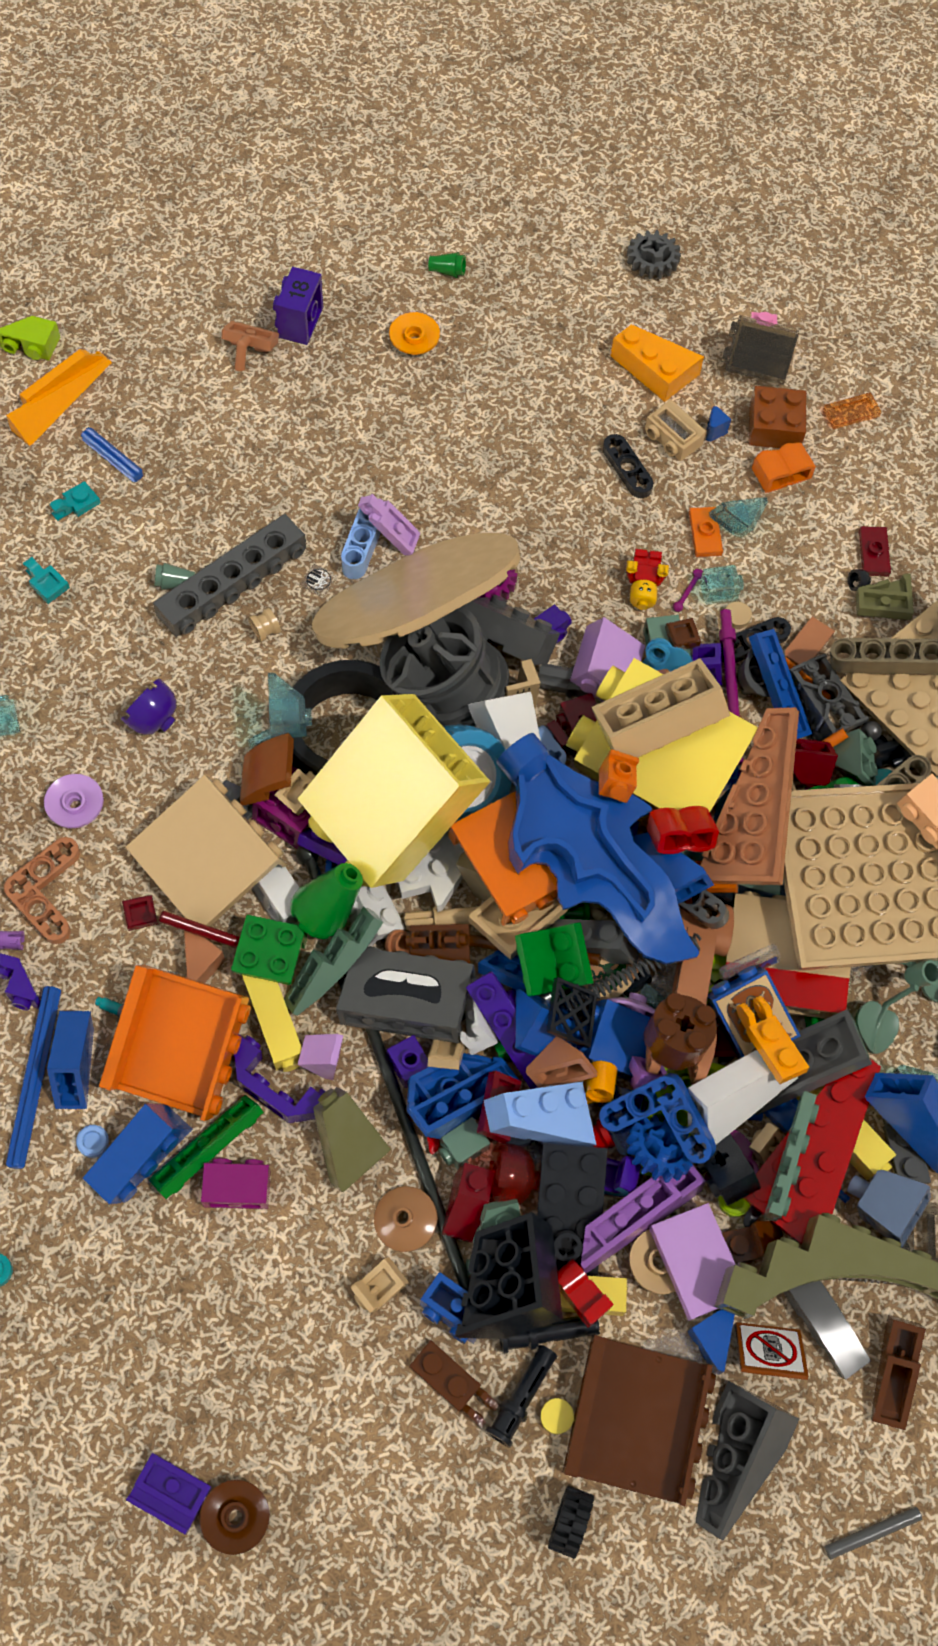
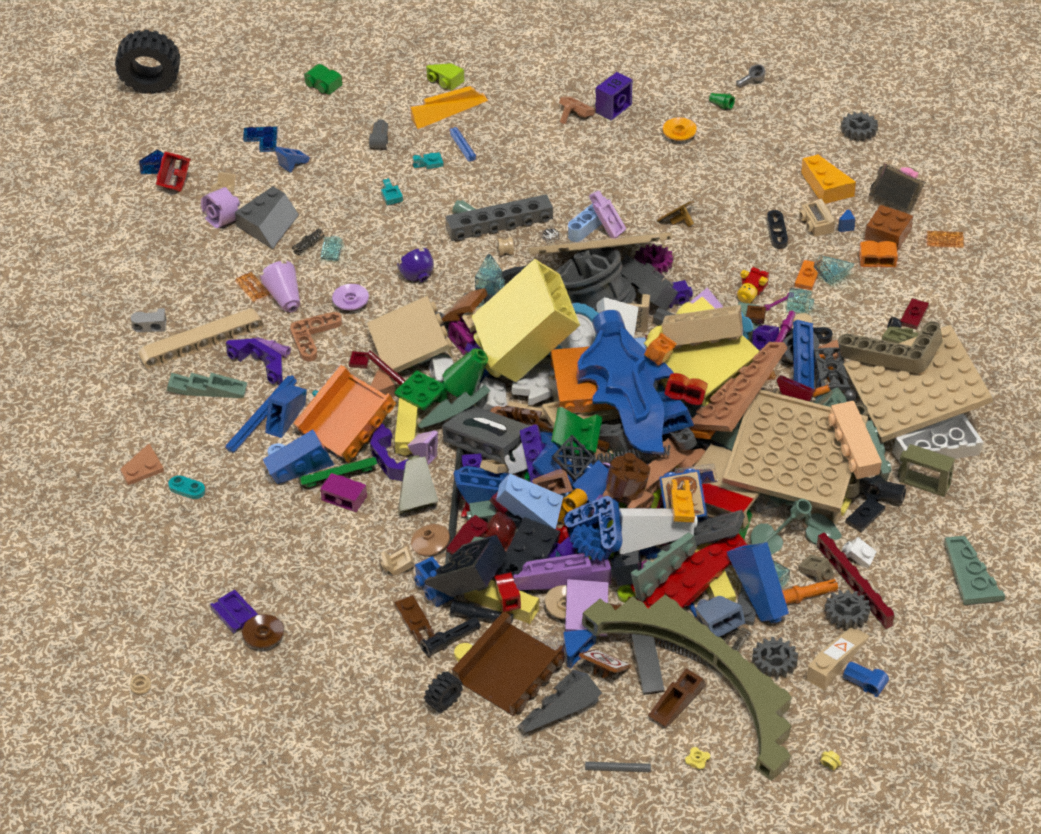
camera: 30 degrees right, 20 degrees down
(471, 200) = (756, 73): none -> flat silver bar
(485, 482) = (684, 215): none -> pearl gold shield

